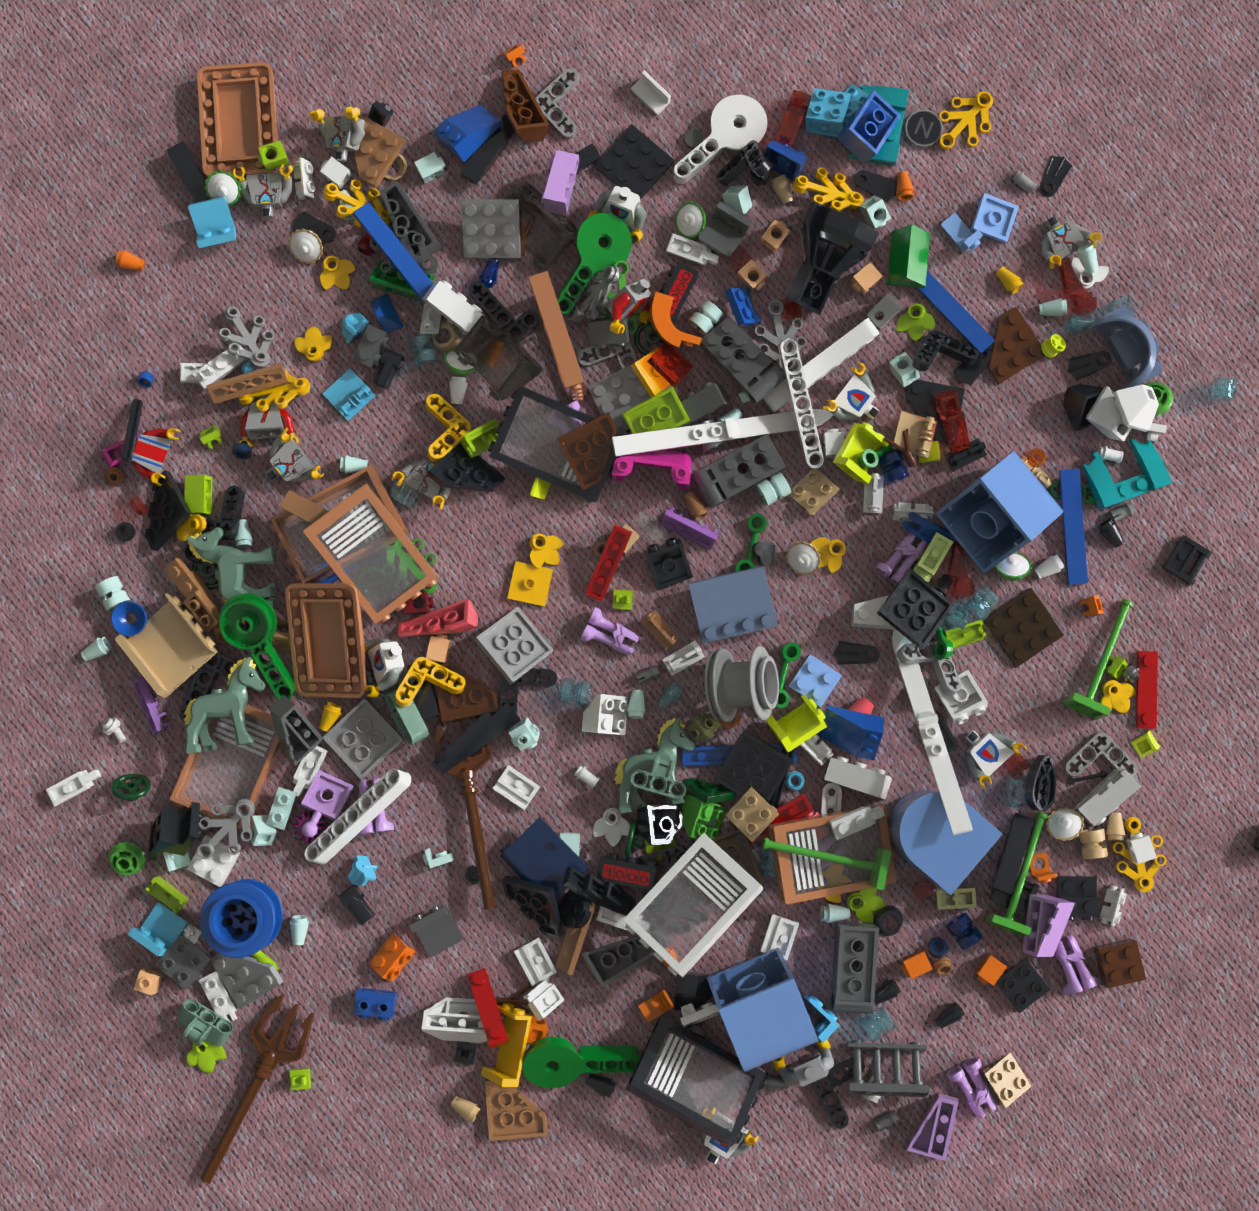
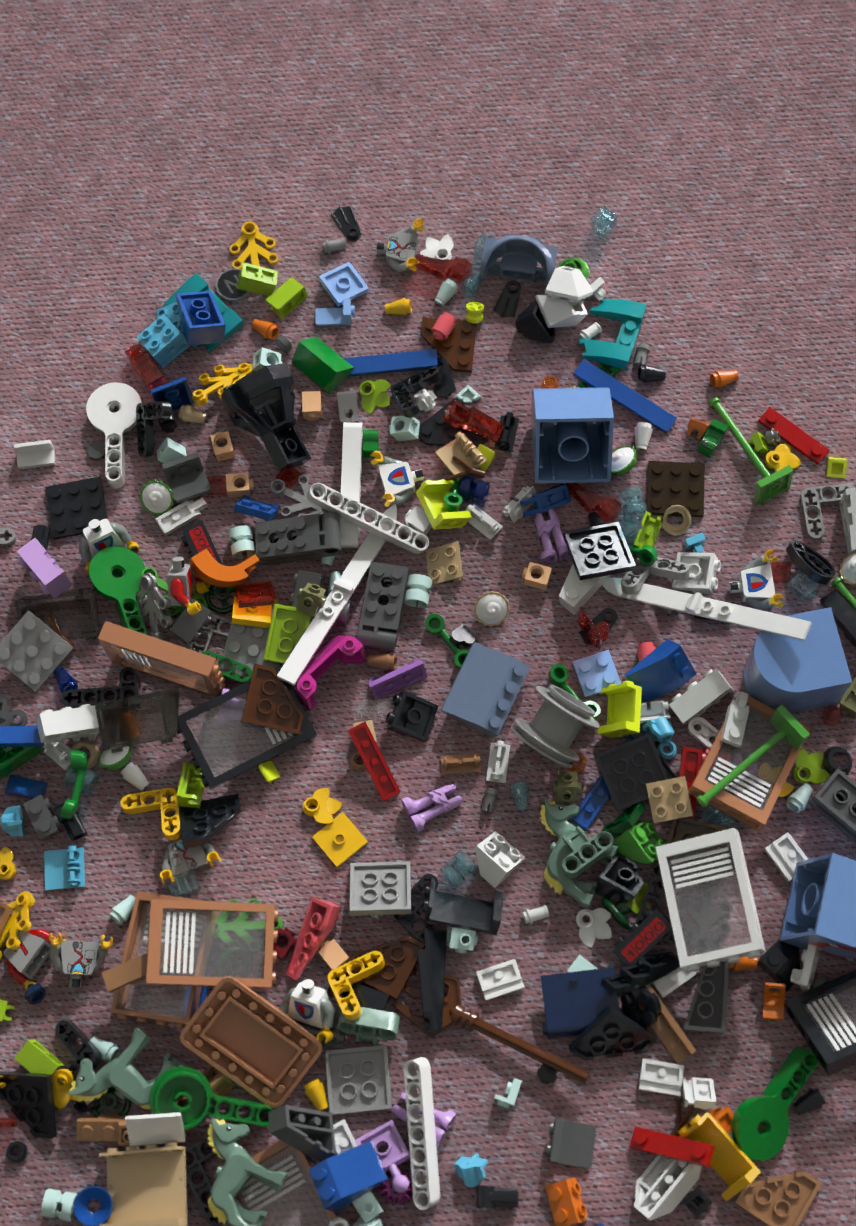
camera: 50 degrees left, 15 degrees down
(210, 621) = (155, 1129): none -> white piece
(286, 786) = (347, 1176): none -> blue slope
(431, 340) = (78, 762): none -> green piece
(544, 720) = (462, 911): none -> black panel
(603, 400) = (237, 677): none -> green beam
(622, 599) = (412, 775): lime tile -> none
(636, 705) = (509, 829): light aqua cone -> none
(696, 413) = (311, 599): none -> olive brick
(805, 765) = (659, 729): none -> medium azure piece
(827, 555) = (509, 589): yellow plate -> none
(844, 658) = (597, 633): none -> clear red hinge
(859, 581) = (543, 571): none -> light nougat brick
(870, 352) = (370, 443): none -> green leg
(876, 185) = (246, 347): black piece -> none
(902, 212) = (283, 343): none -> dark grey tile
(932, 556) = (567, 510): yellowish green plate -> none
(941, 144) = (257, 279): none -> lime hinge
(942, 366) = (425, 399): none -> white gear
(945, 181) = (286, 297): none -> lime hinge
(975, 397) = (468, 395): none -> light aqua tile
(986, 678) = (695, 543): none -> medium azure tile
(990, 657) = (685, 525): none -> tan piece
(1018, 331) = (443, 326): none -> coral brick
(1071, 781) = (825, 541): black hinge -> none
(1088, 258) = (429, 240): light aqua cone -> none
(1091, 625) = (712, 438): none -> green leg
(1153, 594) = (722, 378): none -> orange cone
(1181, 557) = (709, 339): black plate -> none

